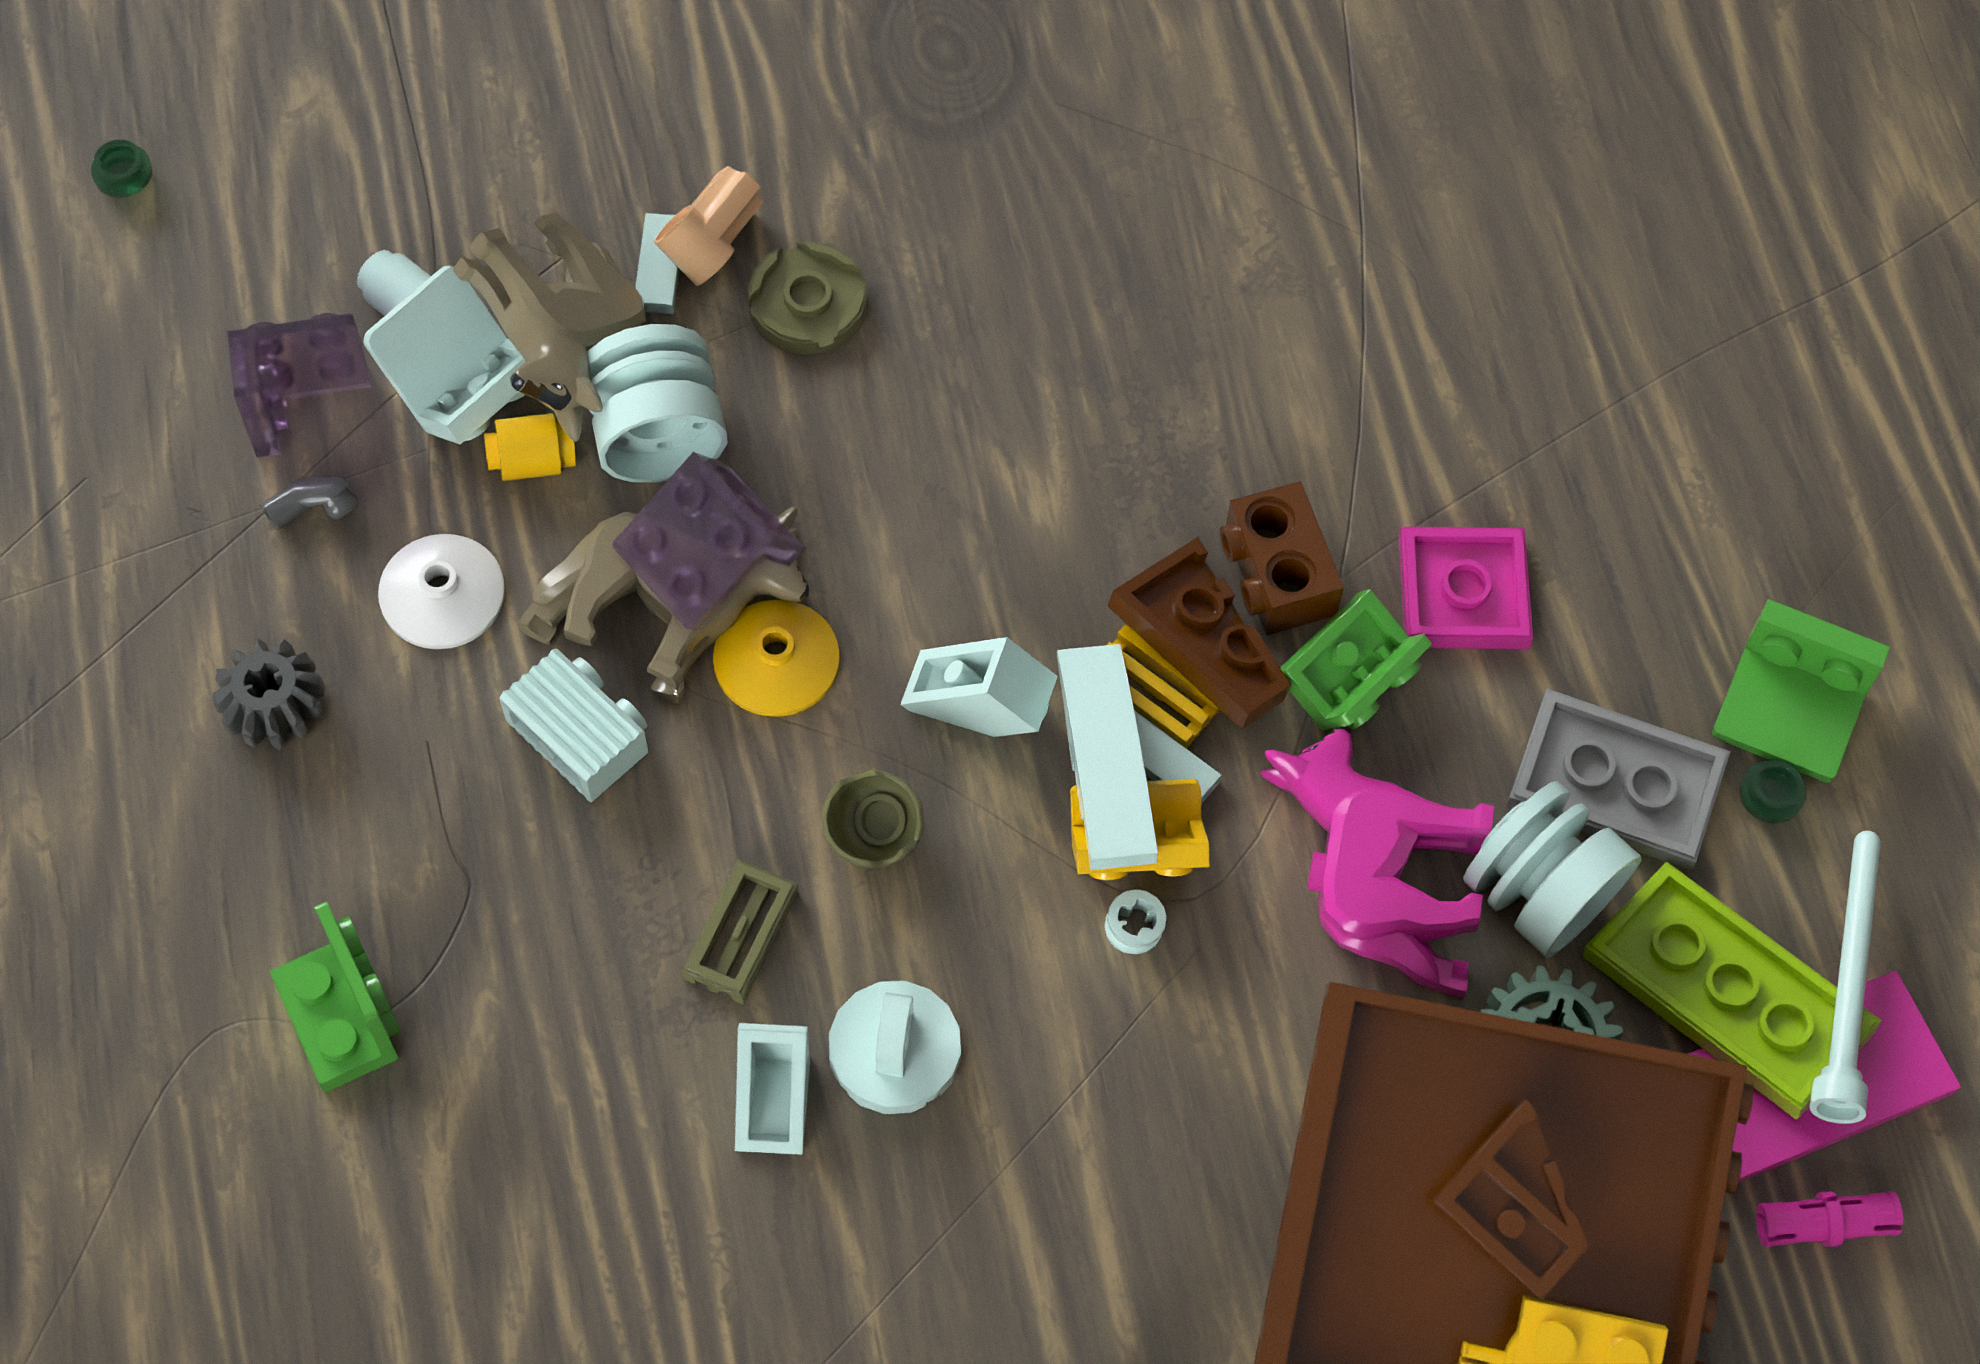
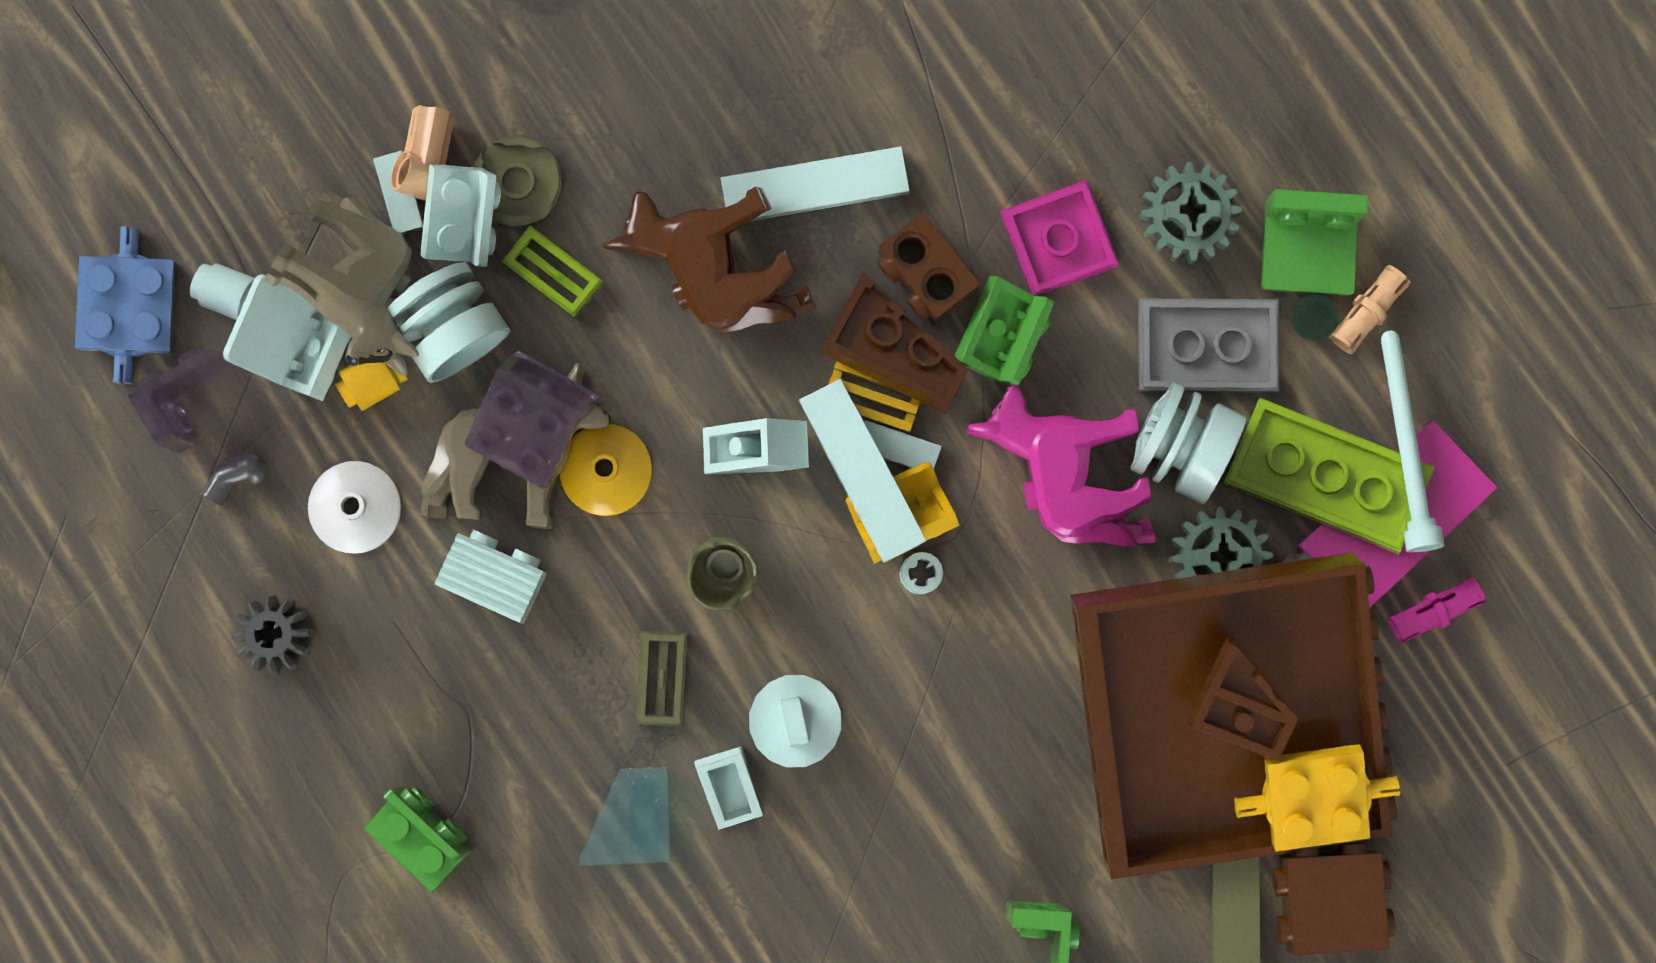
camera: 20 degrees left, 20 degrees up
(275, 263) = (125, 305): none -> medium blue plate
(625, 1093) = (632, 821): none -> clear light blue wing
(724, 292) = (460, 214): none -> light aqua bracket
(831, 447) = (583, 295): none -> lime tile
(1000, 454) = (703, 263): none -> reddish brown animal
(1175, 422) = (823, 182): none -> light aqua tile
(1676, 608) = (1210, 212): none -> sand green gear
(1850, 806) = (1370, 309): none -> light nougat pin

